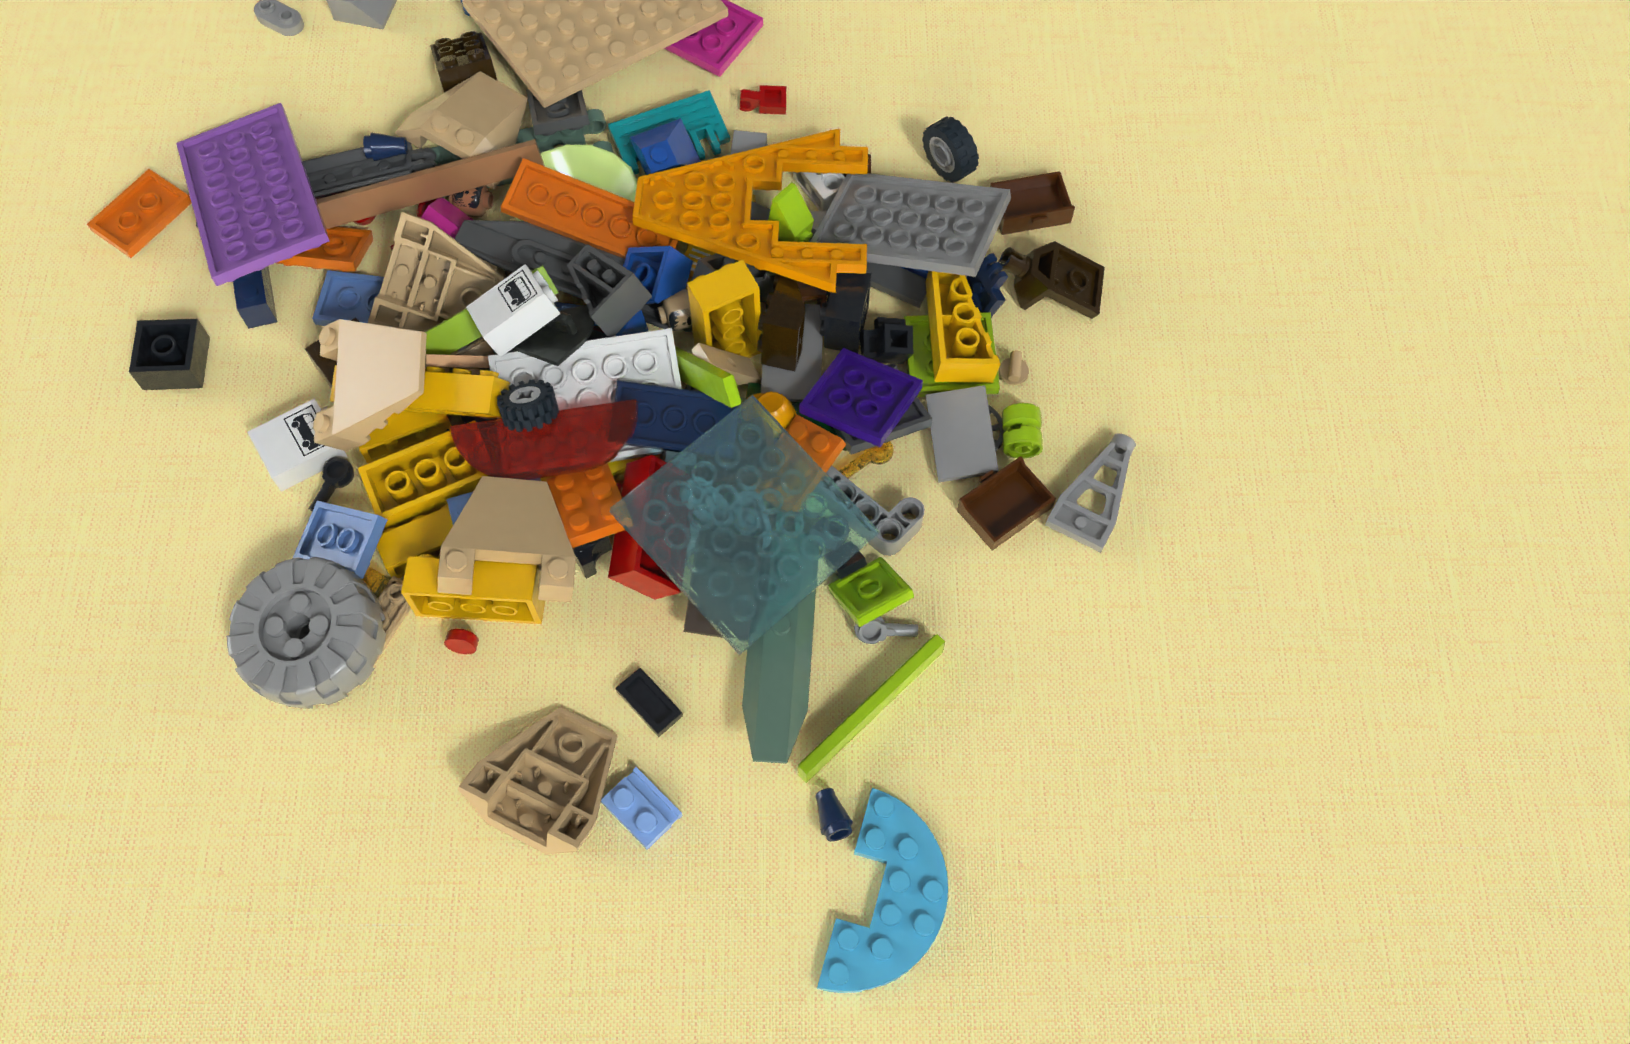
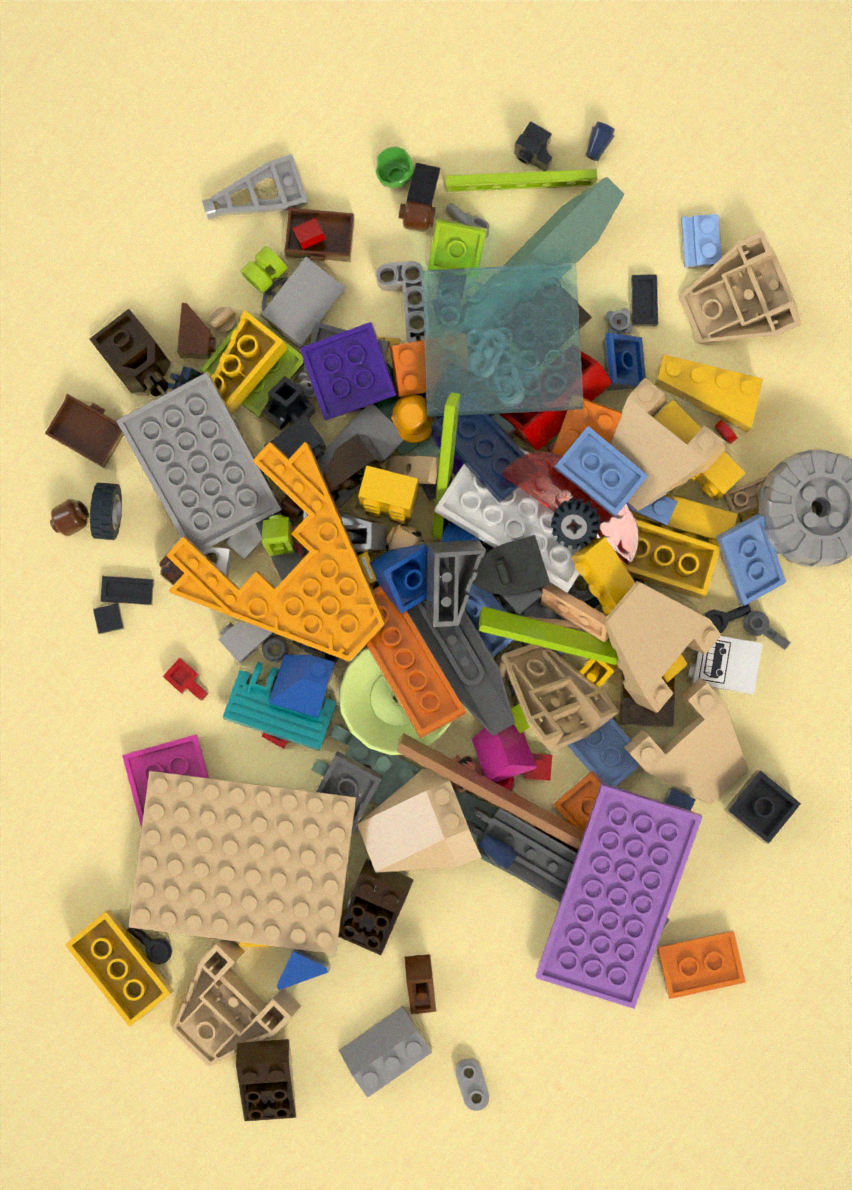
camera: 135 degrees left, 20 degrees up
(260, 350) = (703, 756): none -> tan wedge
(293, 503) = (757, 623): none -> dark grey plate
(380, 43) = (420, 984): none -> reddish brown slope
(507, 666) = (714, 389): none -> yellow wedge
(514, 309) = (529, 603): white brick -> none
(542, 469) = (601, 471): none -> medium blue plate
(618, 622) = (623, 361): none -> blue slope
(654, 651) = (622, 315): none -> light grey plate
(870, 98) = (108, 618): none -> black tile
(877, 126) = (127, 590): none -> black tile
(890, 749) = (532, 147): none -> black brick
(907, 906) = (602, 59): medium azure plate -> none
(937, 591) = (416, 216): none -> reddish brown head
(957, 620) = (423, 184): none -> black tile
(981, 129) = (69, 517): none -> reddish brown head
(999, 614) = (394, 167): none -> bright green hair
(1015, 489) = (309, 233): none -> red tile
(1025, 333) = (194, 336): none -> reddish brown slope

